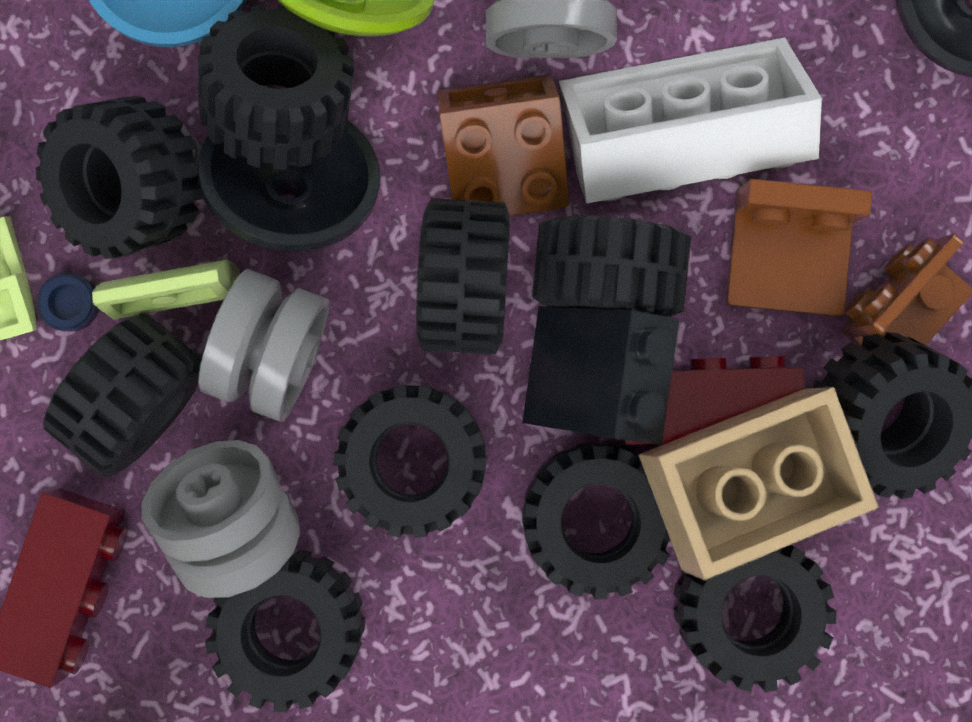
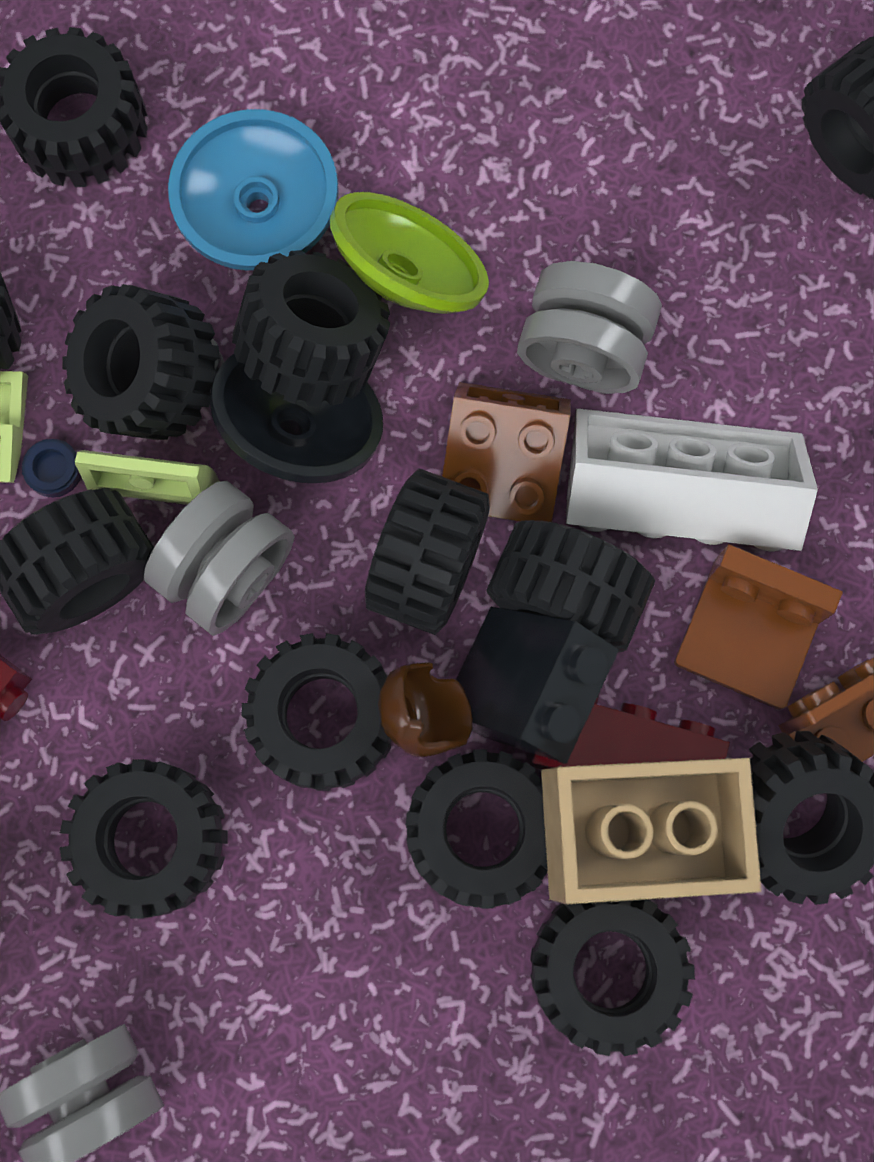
camera: 20 degrees right, 10 degrees down
(221, 518) = (120, 707): light grey wheel -> none
(512, 434) = (424, 712): none -> reddish brown hair

